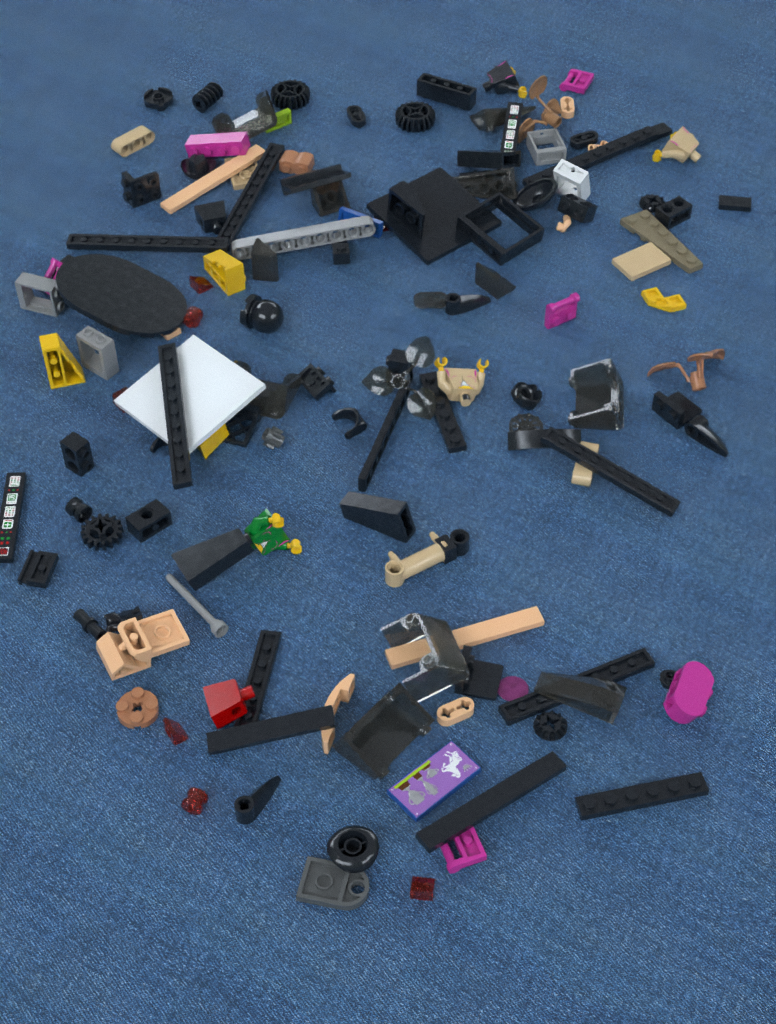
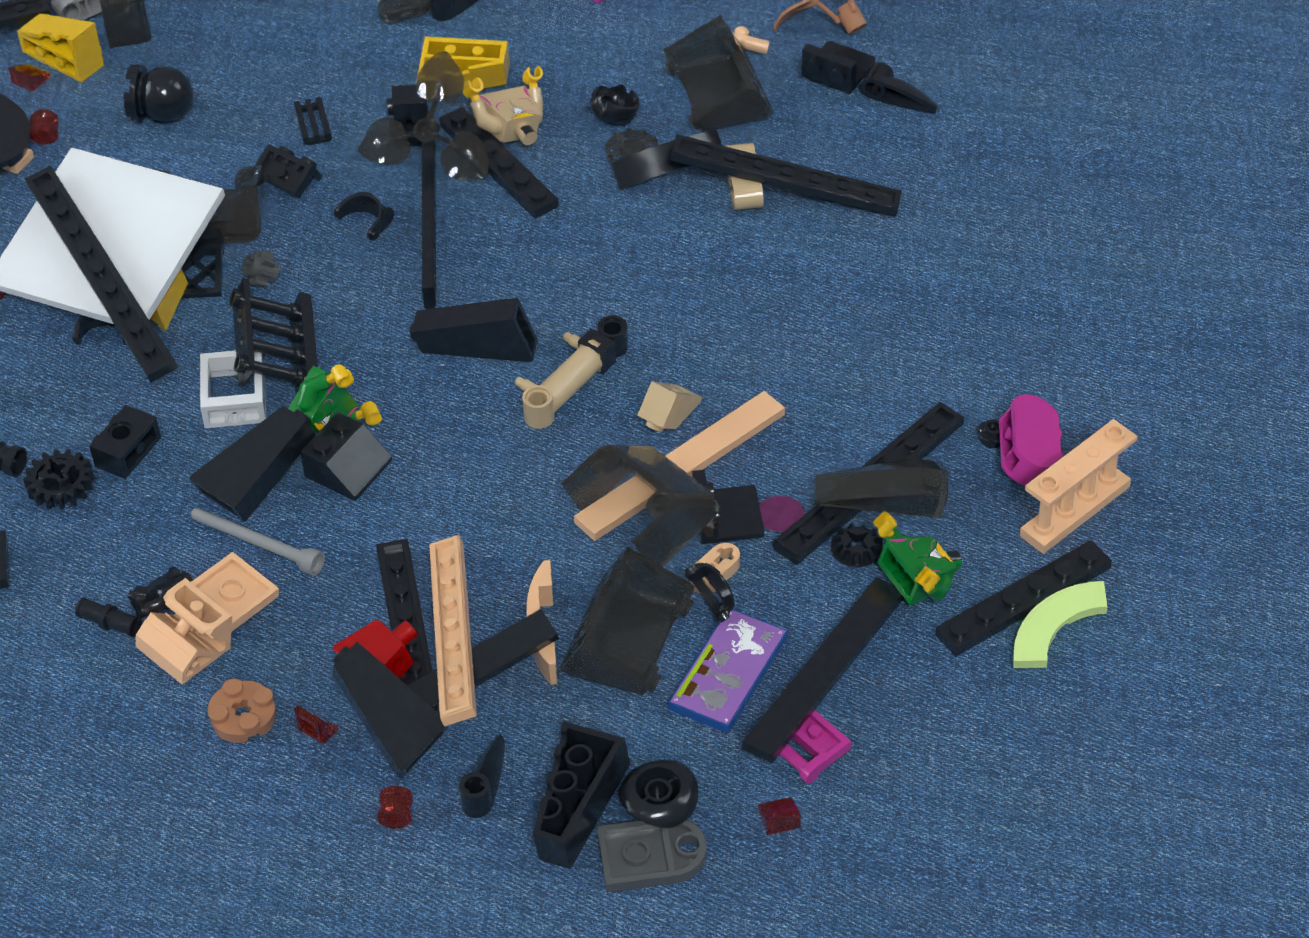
camera: 20 degrees left, 0 degrees up
(216, 742) = (388, 708): none -> black slope
(227, 522) = (218, 410): none -> white window
(267, 569) = (344, 457): none -> black slope
(275, 701) = (452, 631): none -> light nougat tile
(276, 484) = (299, 333): none -> black fence
(304, 830) = (578, 790): none -> black wedge
(347, 346) = (310, 107): none -> black tile
(439, 715) = (696, 573): none -> black helmet
(451, 344) = (475, 58): none -> yellow wedge
(472, 596) = (667, 405): none -> tan slope
(579, 751) = (915, 564): none -> green torso
(628, 380) = (751, 43): none -> light nougat arm
(651, 814) = (1050, 615): none -> yellowish green tile
(704, 734) = (1078, 486): none -> light nougat fence

